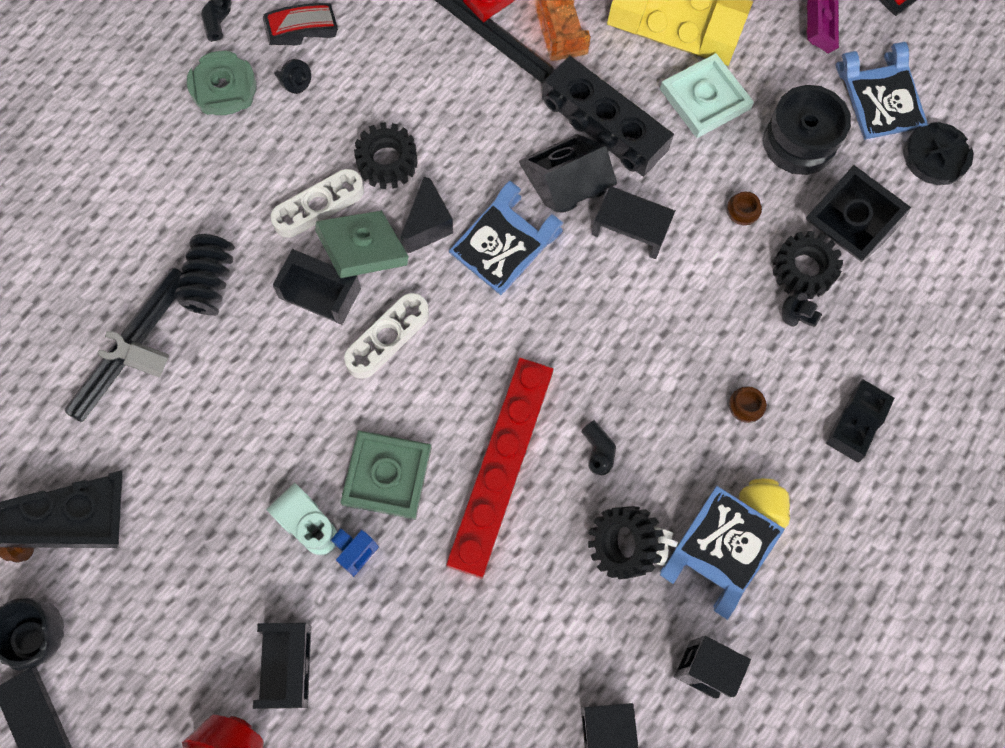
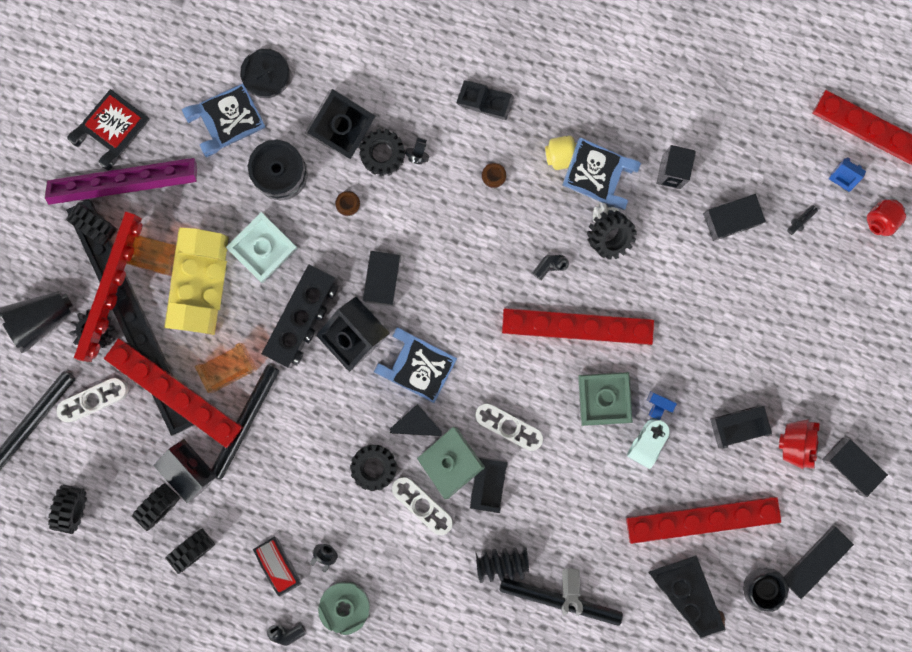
camera: 95 degrees left, 15 degrees up
(165, 577) = (703, 520): none -> red plate

